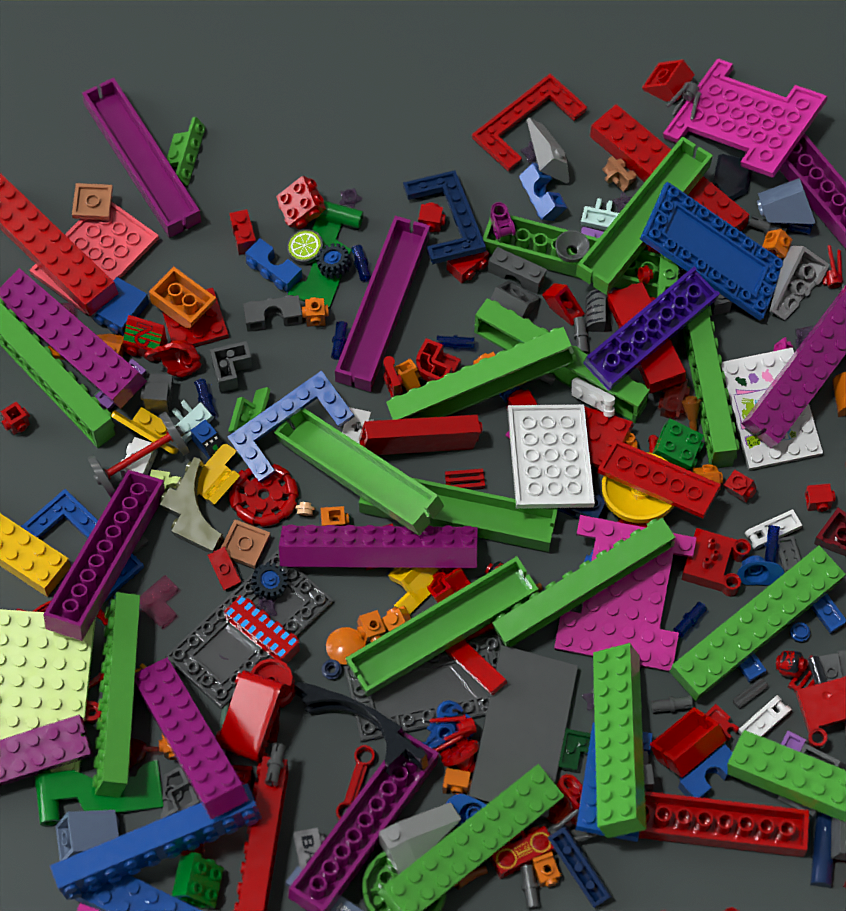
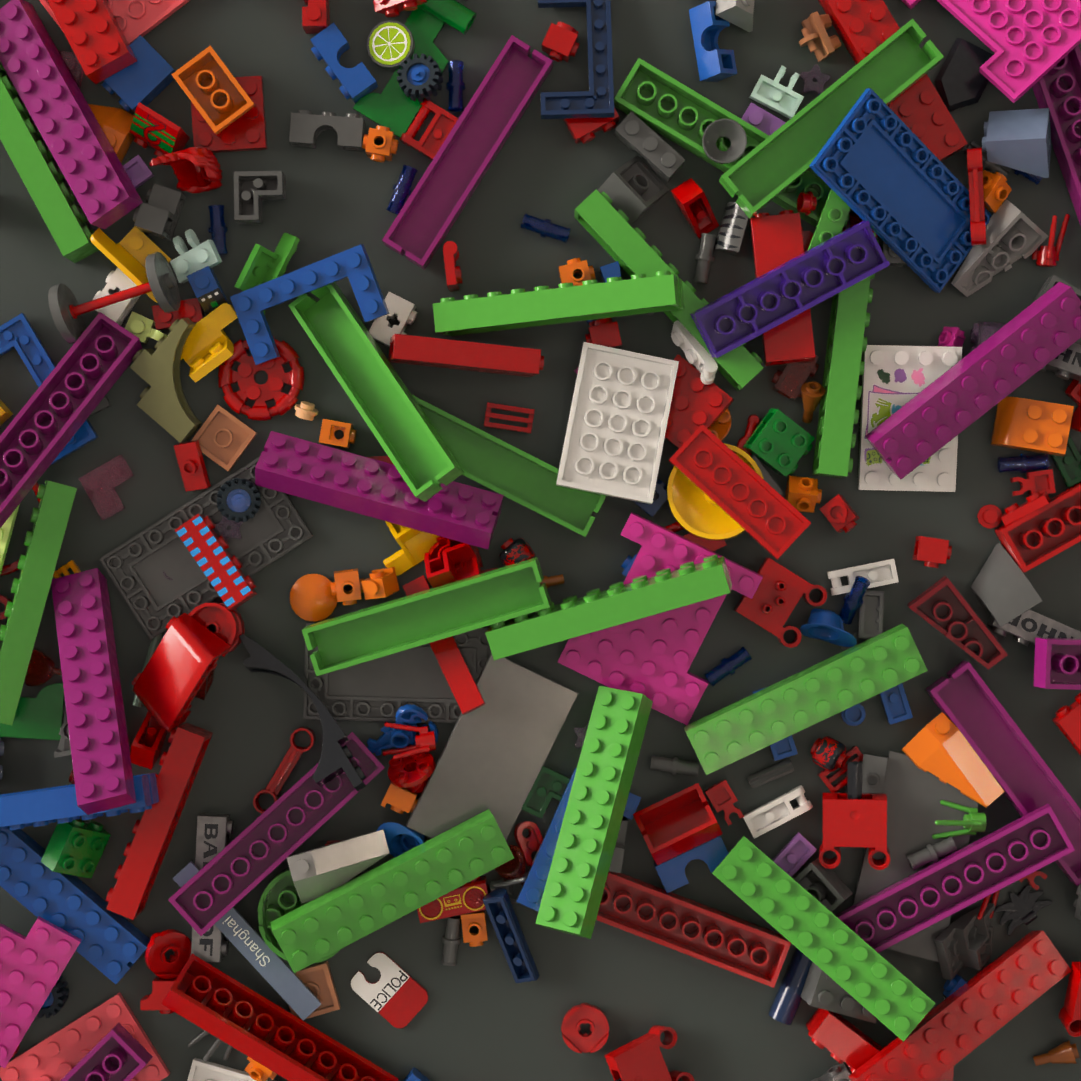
camera: 15 degrees right, 25 degrees up
(177, 466) = (188, 309): none -> red plate
(275, 764) = (187, 745): dark grey pin -> none
(331, 663) = (282, 623): dark blue plate -> none
(353, 298) = (435, 133): none -> red plate
(409, 374) = (473, 264): orange brick -> none
(434, 362) = (512, 258): red brick -> none
(502, 223) = (644, 86): magenta piece -> none
(774, 261) = (976, 196): none -> red piece

